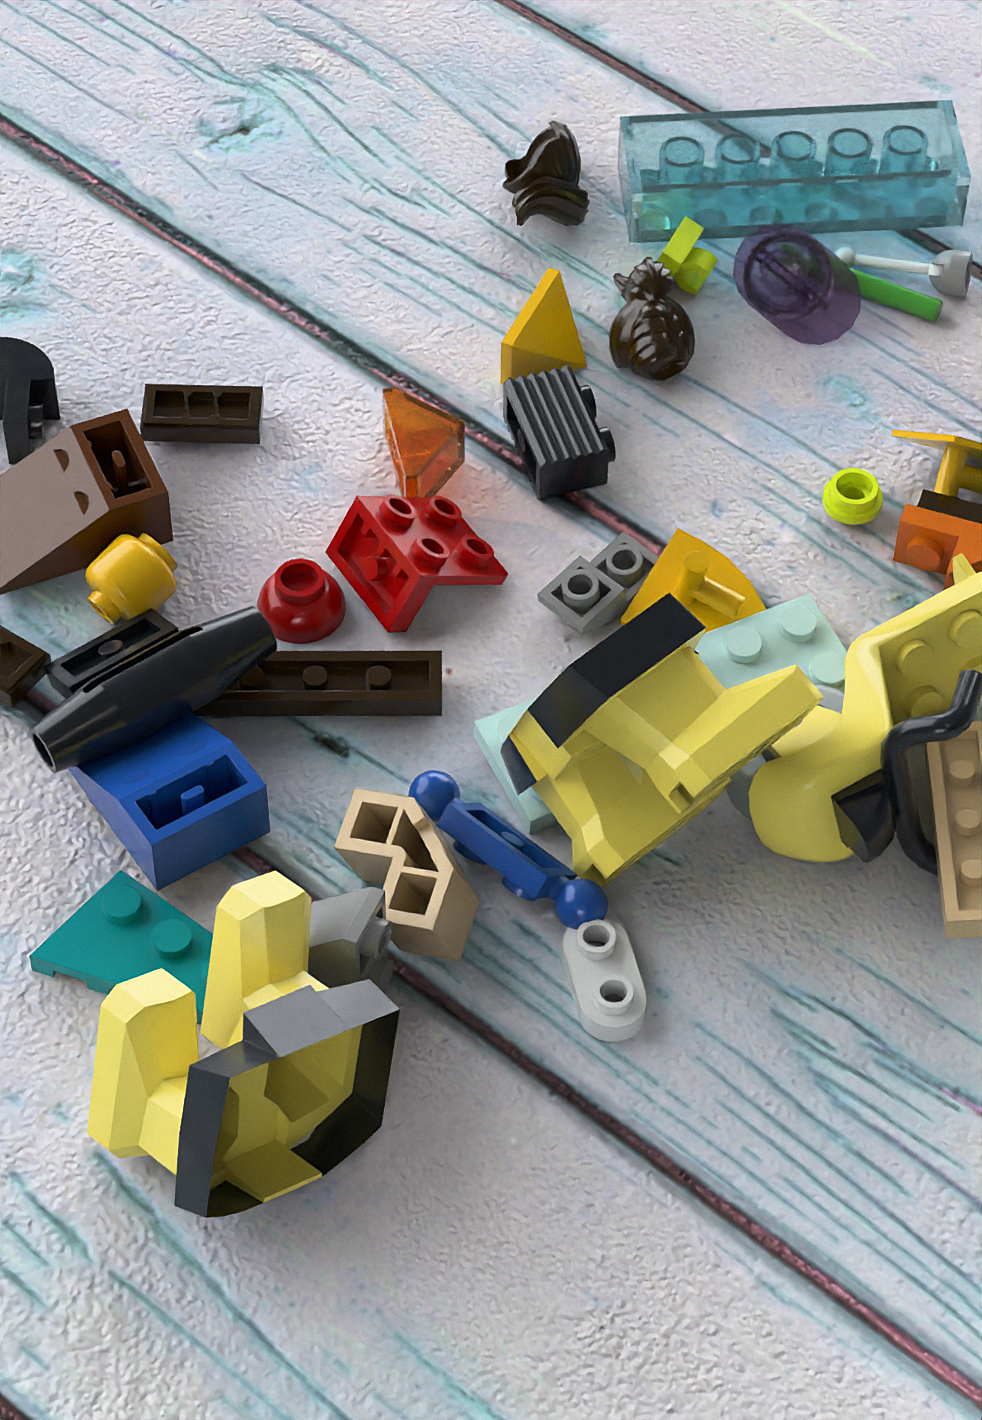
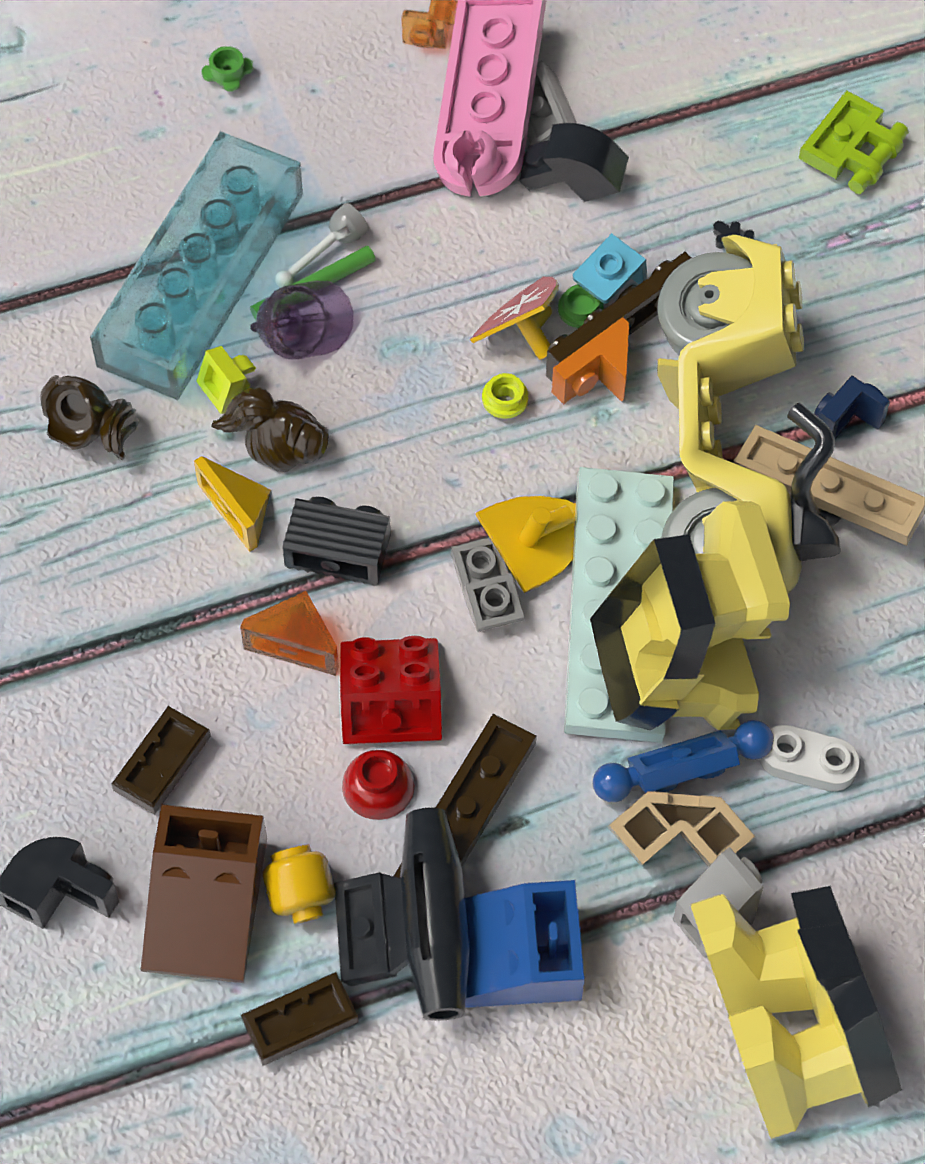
camera: 60 degrees left, 10 degrees up
(126, 935) = (634, 1028): teal wing -> none

